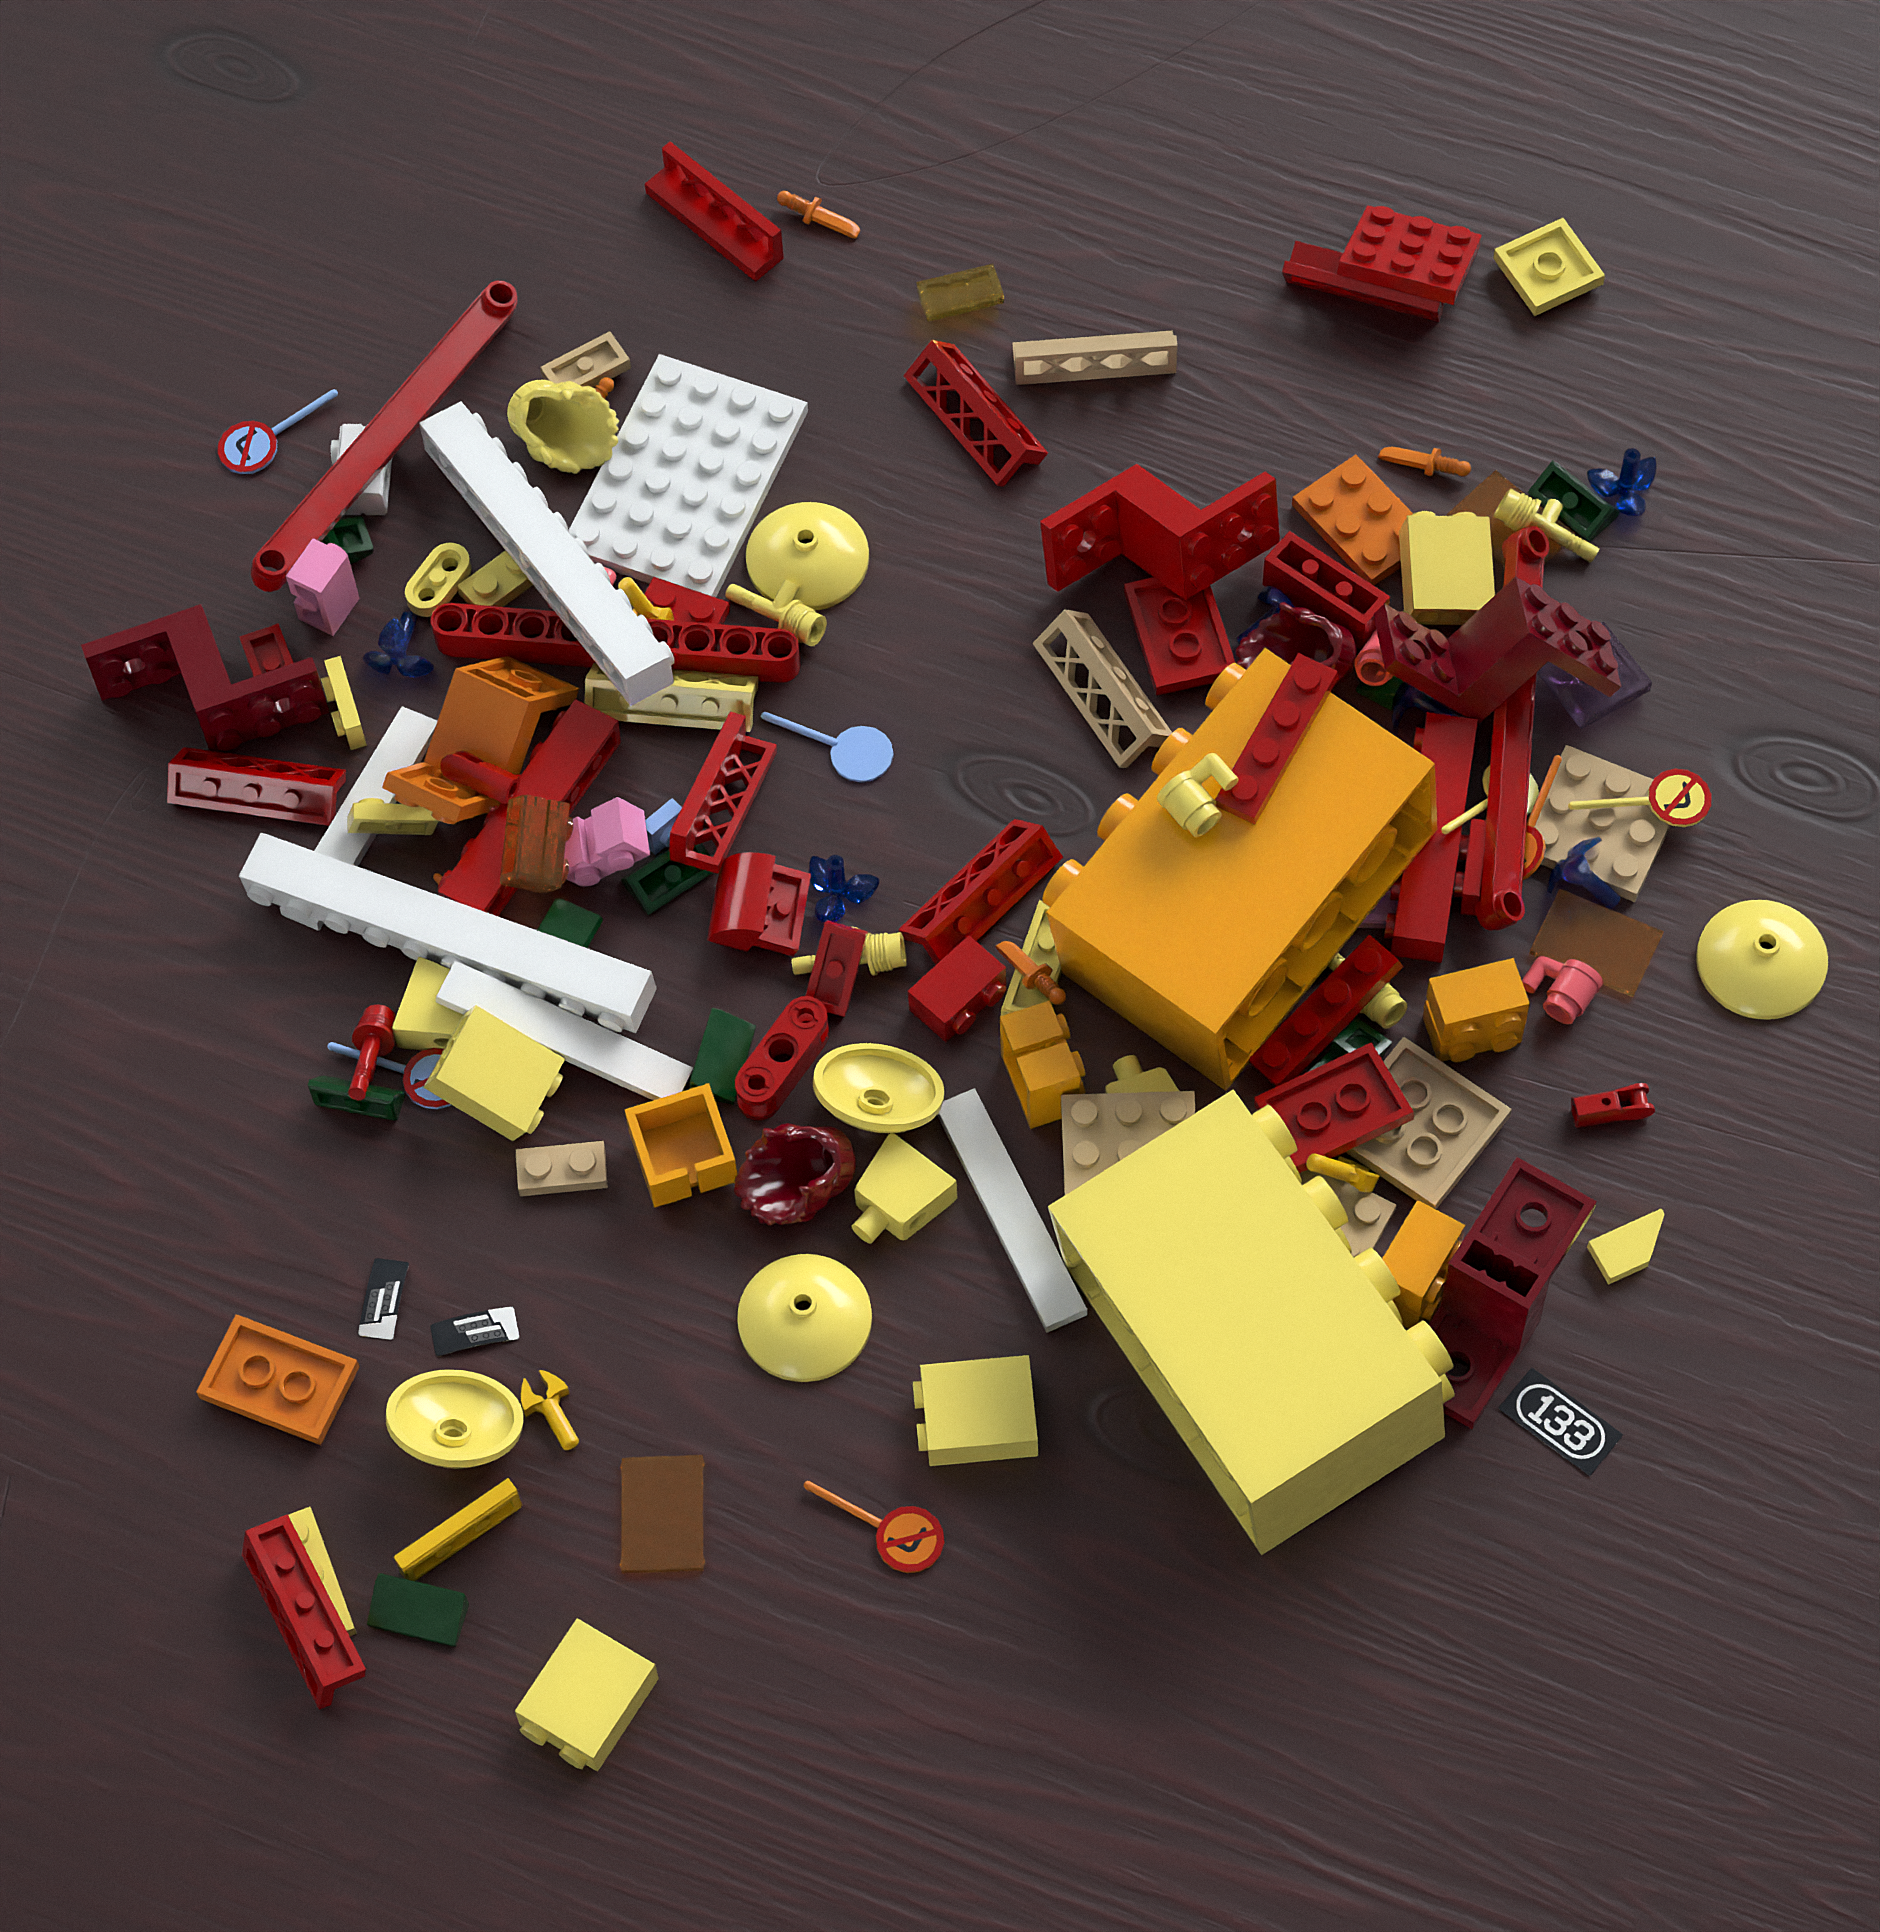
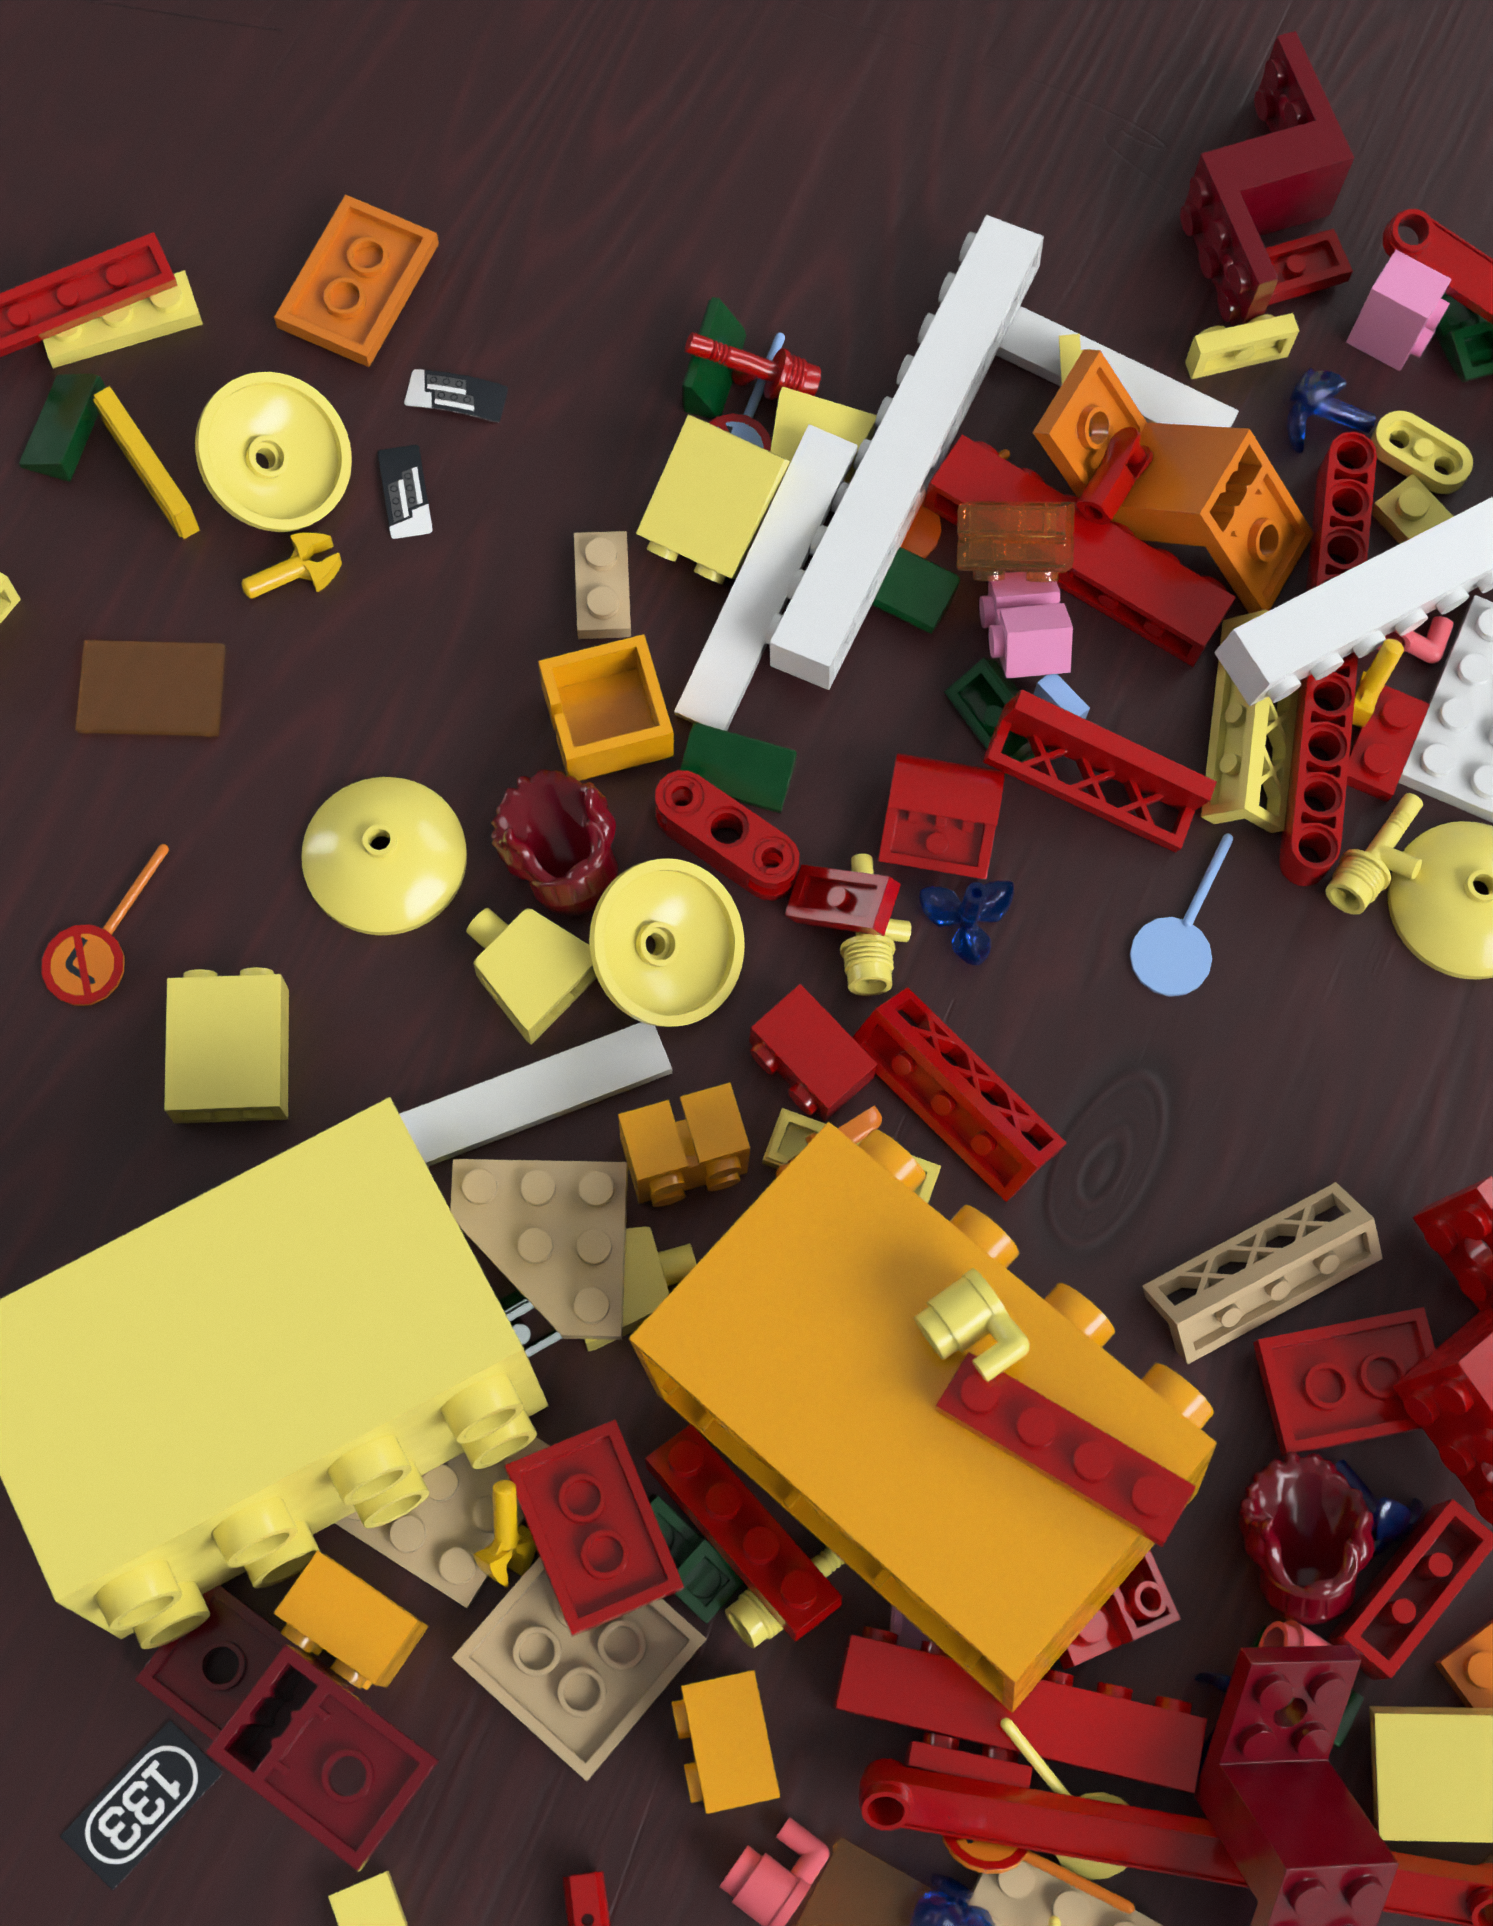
camera: 85 degrees right, 10 degrees up
(254, 785) = (1123, 243): red fence -> none

